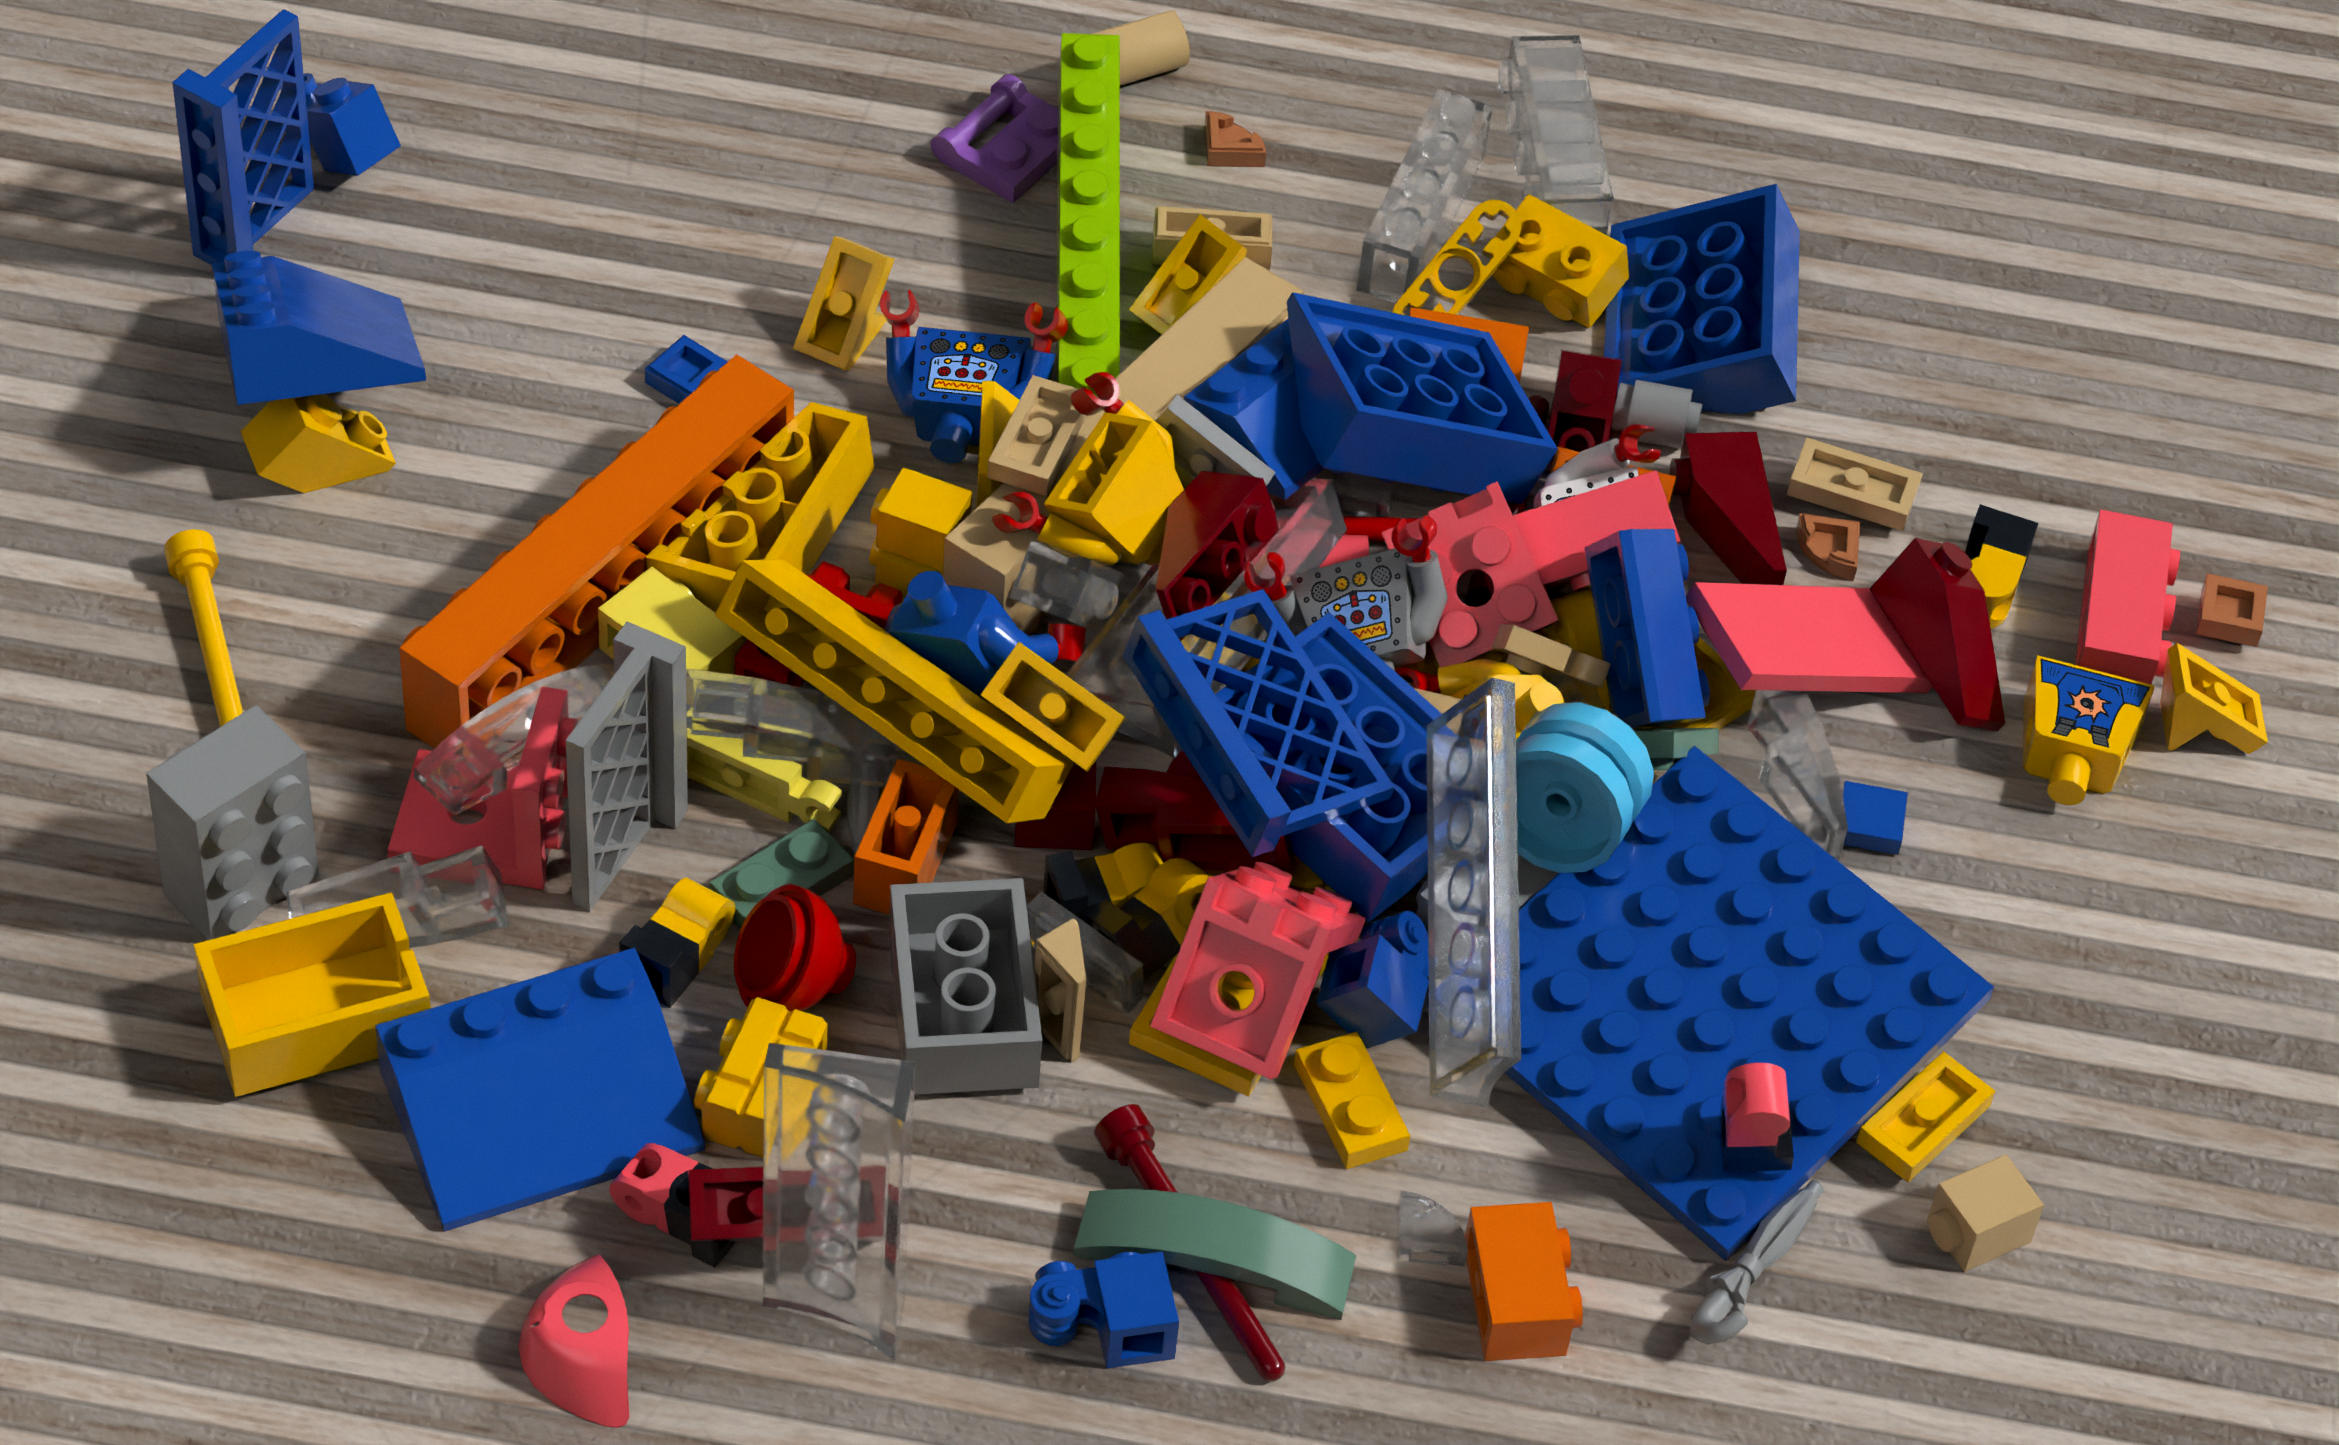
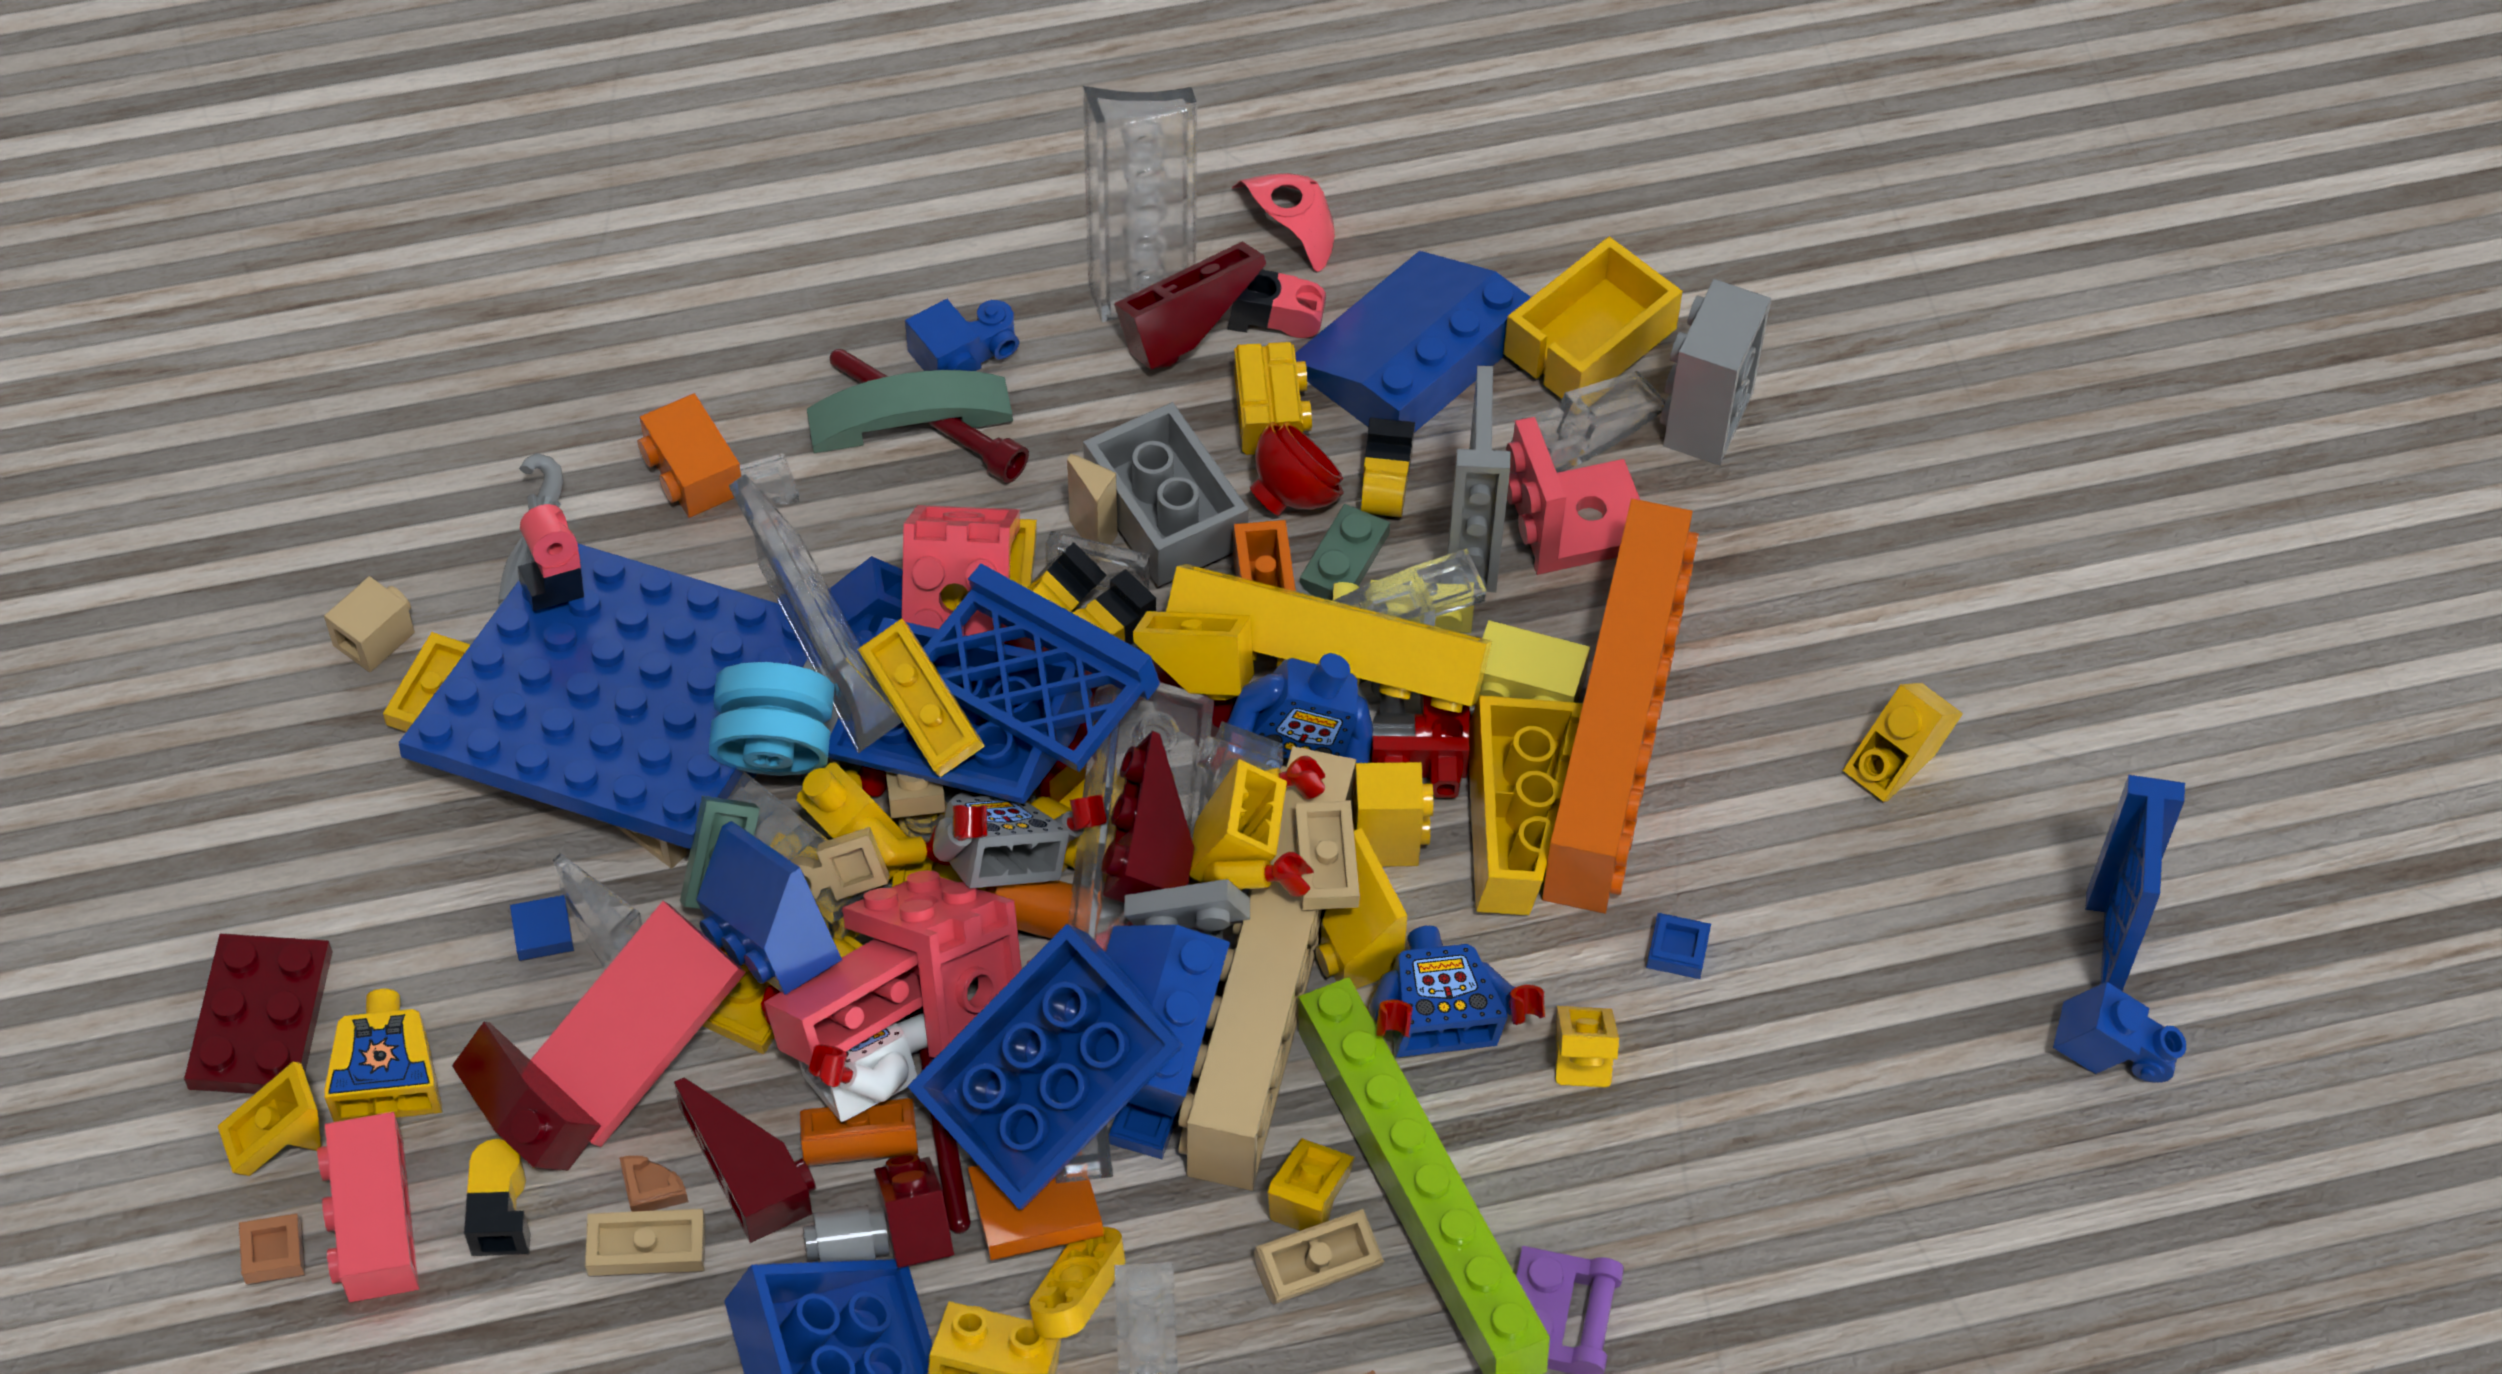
camera: 160 degrees right, 5 degrees up
(193, 561) = (1919, 615): yellow piece -> none
(308, 331) = (1964, 780): blue slope -> none
(477, 756) = (1580, 564): clear slope -> none
(1351, 1100) = (850, 540): yellow plate -> none
(1394, 742) = (921, 698): none -> yellow tile
(2201, 845) = (257, 1011): none -> dark red plate

